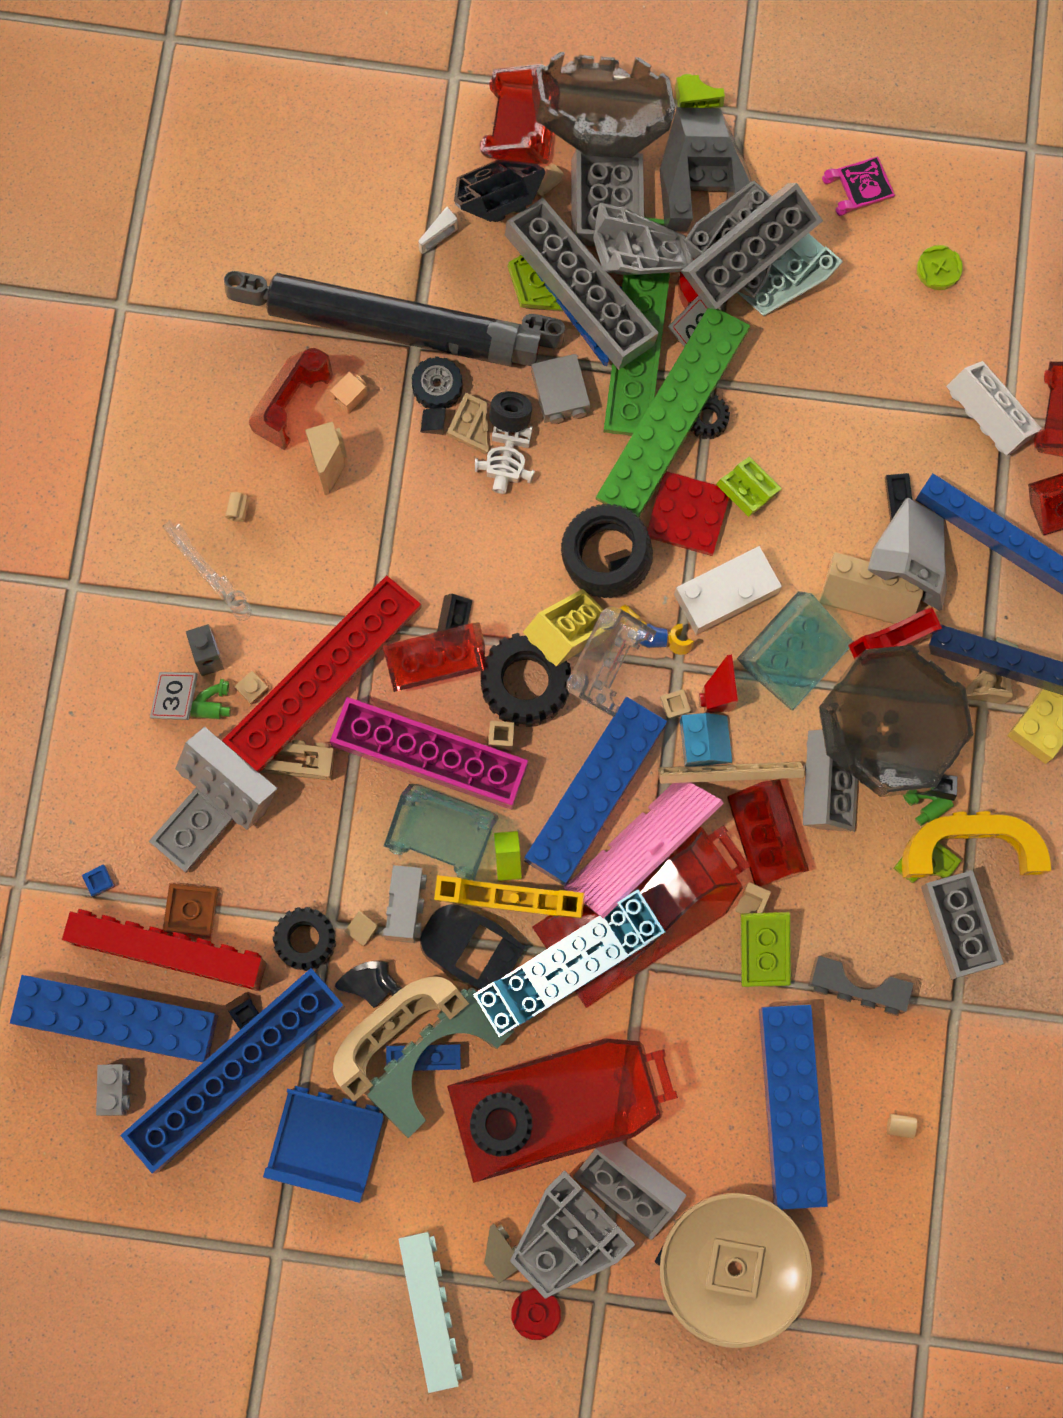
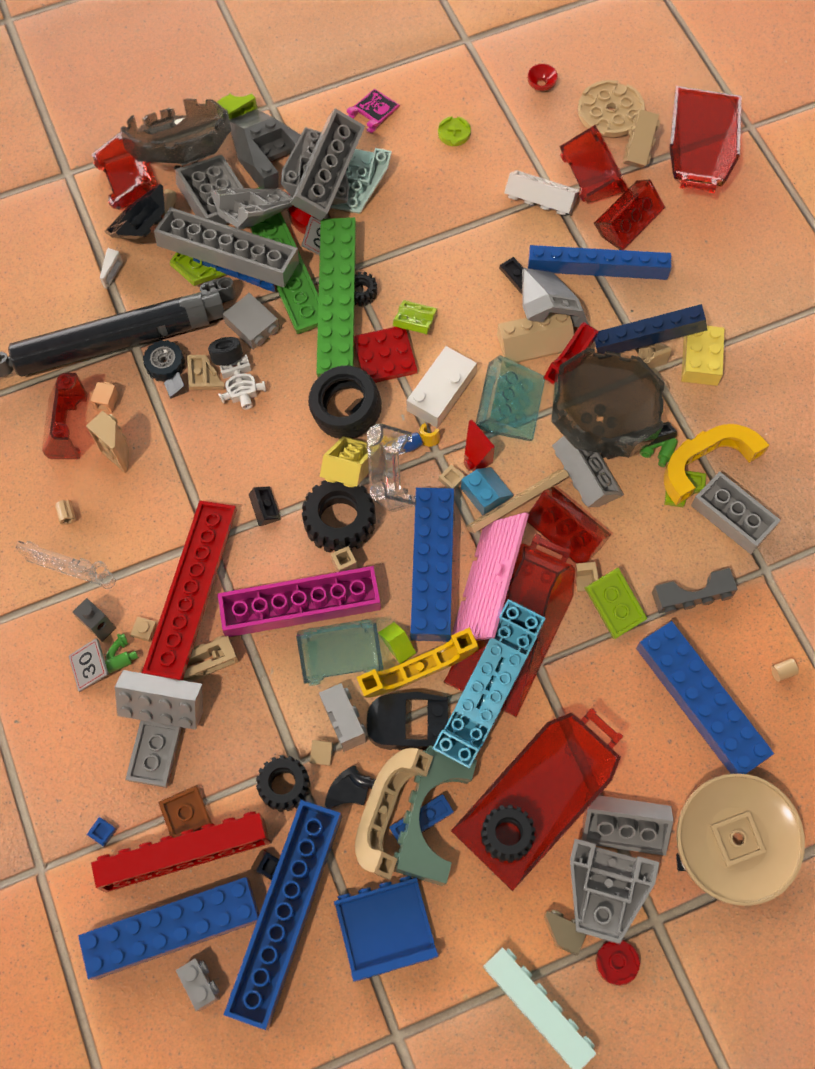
camera: 25 degrees left, 10 degrees down
(435, 656) = (265, 532): clear red slope -> none

